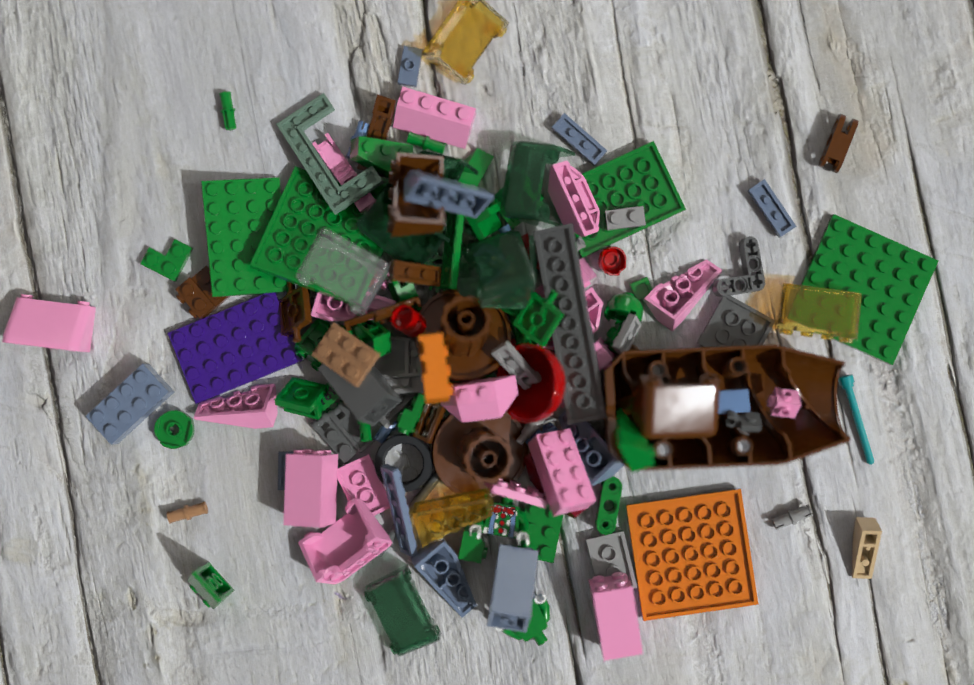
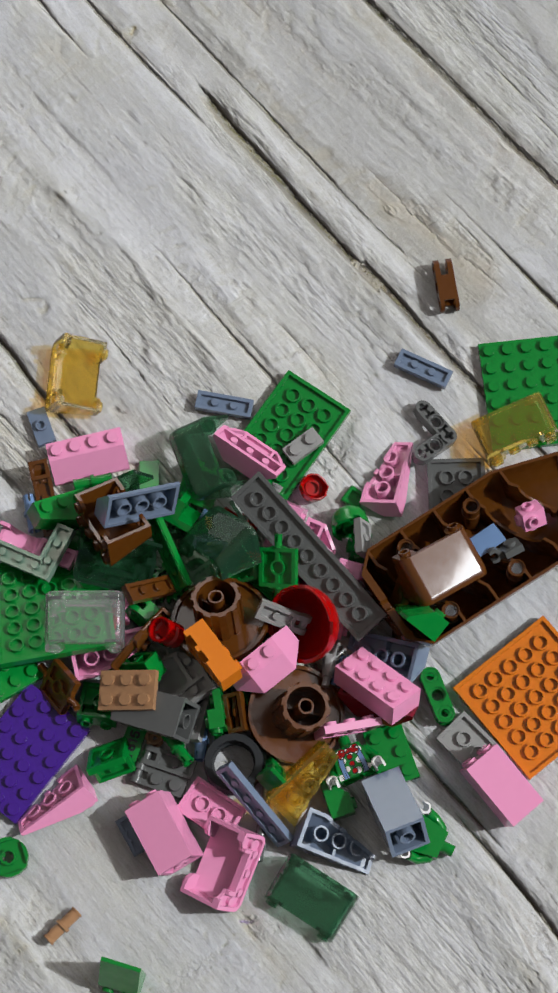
camera: 30 degrees left, 15 degrees down
(430, 494) = (272, 775): none -> green slope

